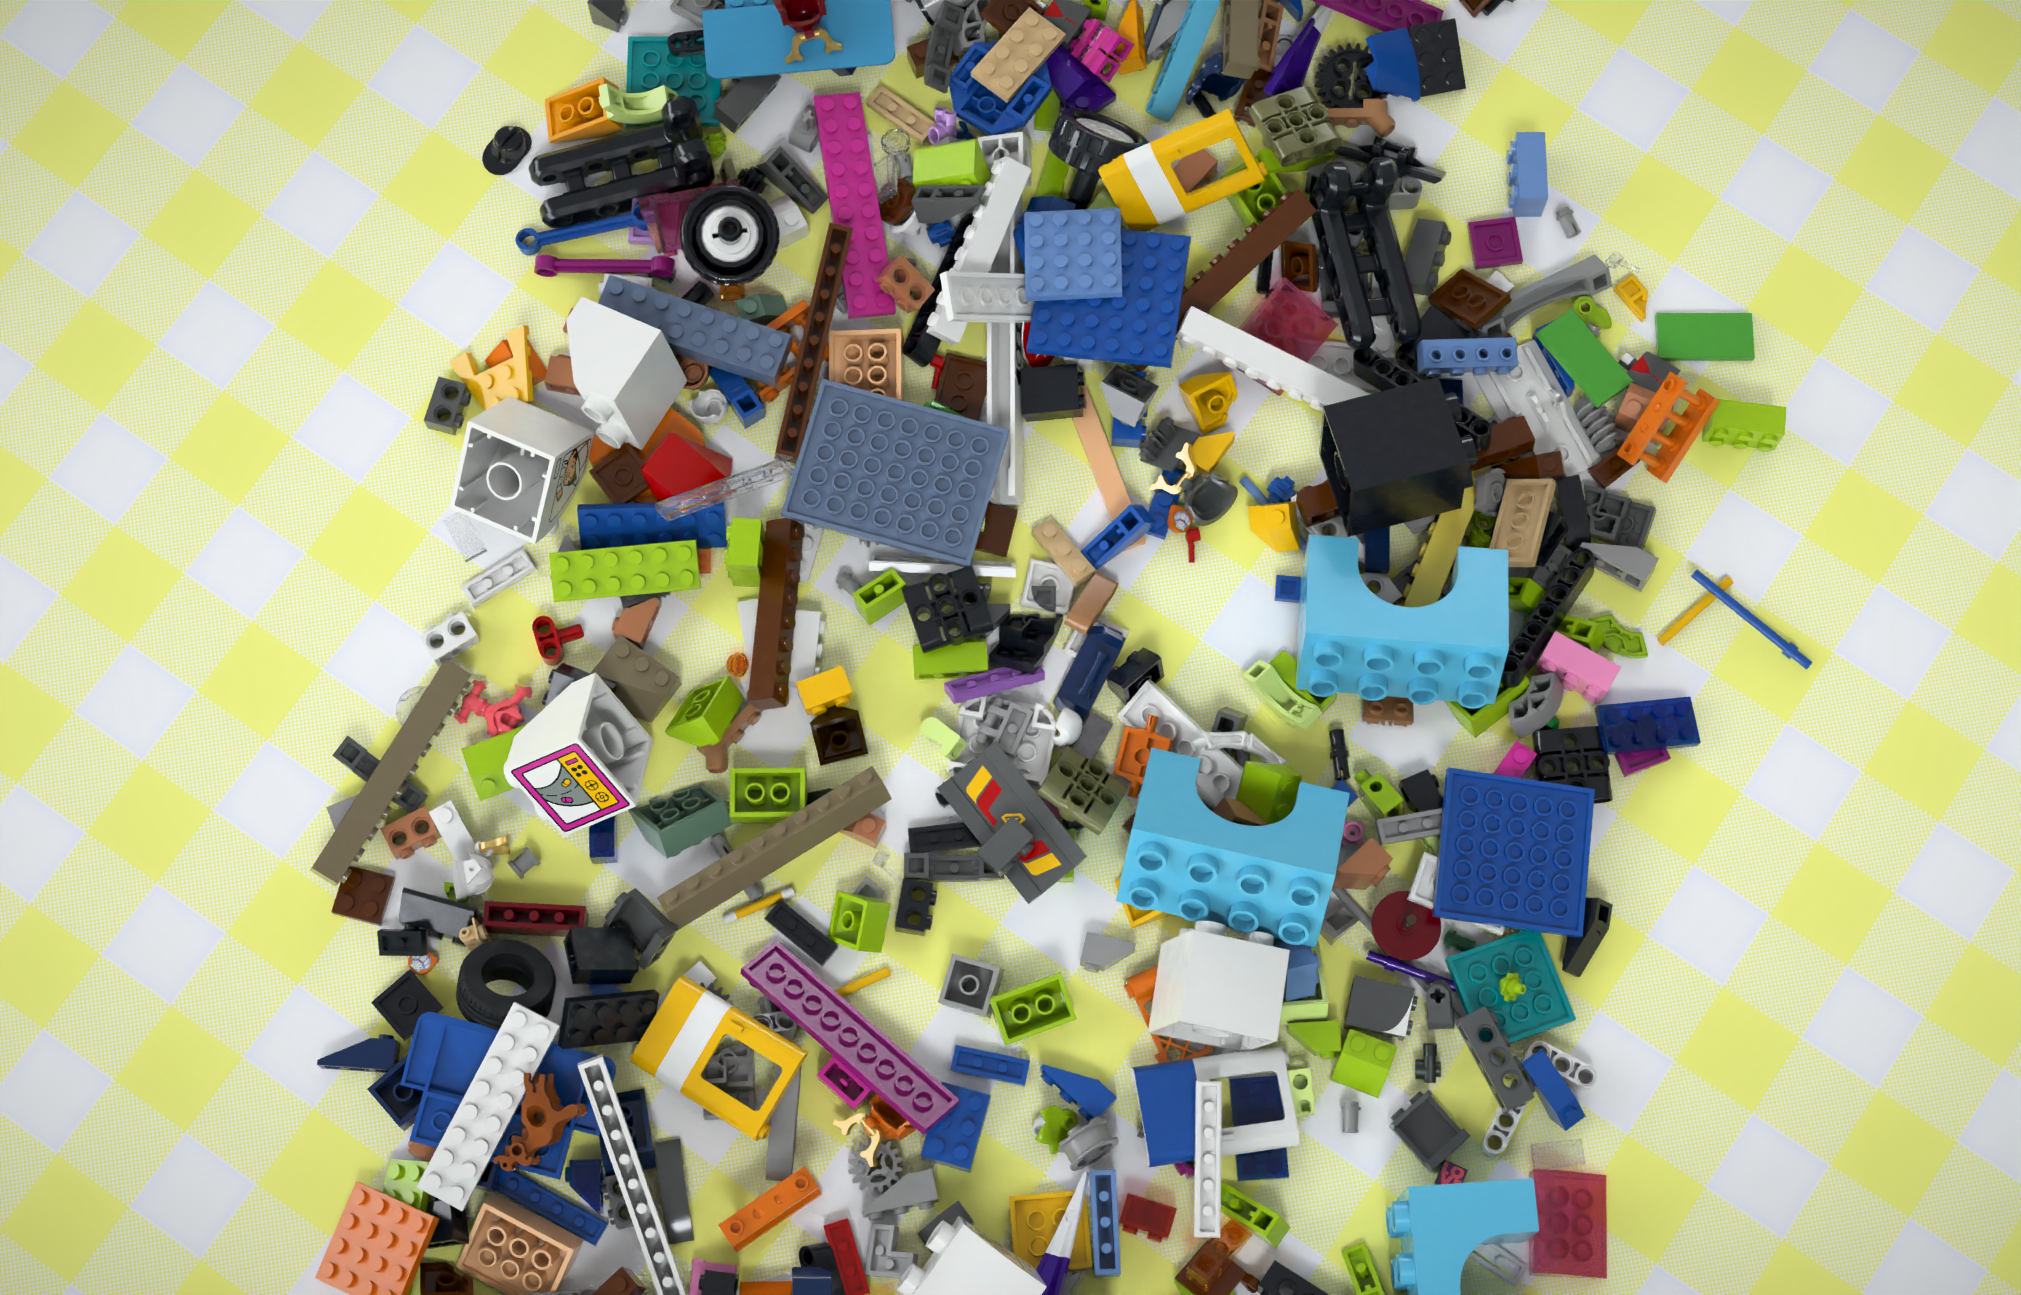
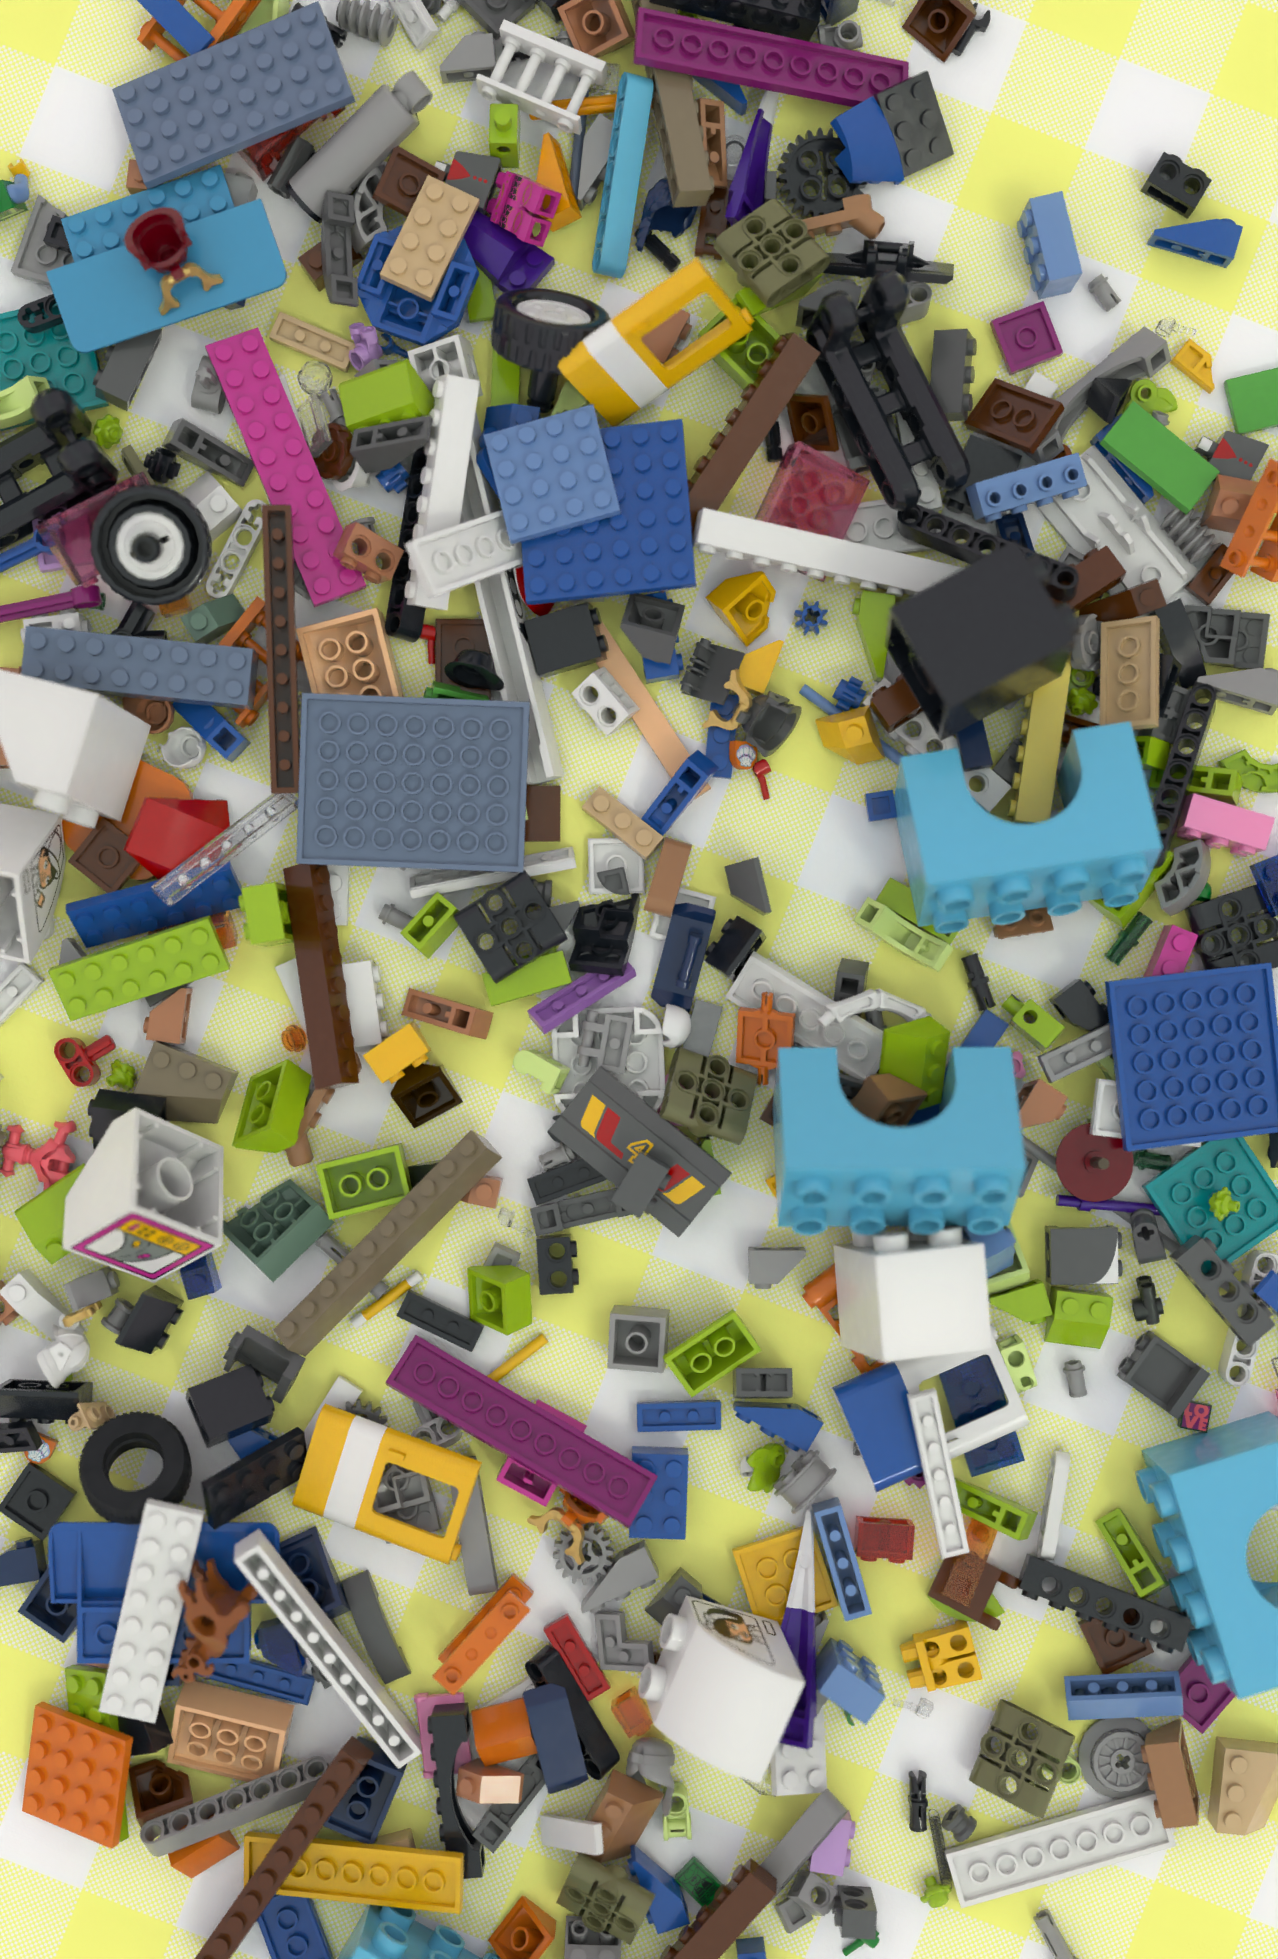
camera: 15 degrees left, 15 degrees up
(511, 825) = (92, 1288): none -> light grey slope
(533, 918) = (148, 1378): dark red brick -> none
(551, 870) = (150, 1321): none -> black slope
(583, 659) = (122, 1075): none -> lime plant
(793, 260) = (232, 547): none -> white beam
(876, 674) = (447, 1014): none -> nougat slope
(940, 816) = (556, 1157): none -> light grey pin
(968, 398) = (473, 670): none -> black piece
(1071, 1051) = (762, 1383): none -> dark grey brick
(1077, 444) = (609, 696): none -> white brick
(1158, 625) = (748, 885): none -> dark grey slope
(1258, 427) = (807, 625): none -> blue gear
(1306, 1223) = (1053, 1505): none -> white beam
(1308, 77) = (770, 185): none -> dark grey tile
(1310, 444) = (872, 622): none -> lime slope
(1478, 748) = (1128, 938): none -> clear green pin
(1553, 302) = (1108, 397): none -> black slope
(1641, 155) = (1172, 192): none -> black brick
(1659, 199) = (1207, 241): none -> blue slope

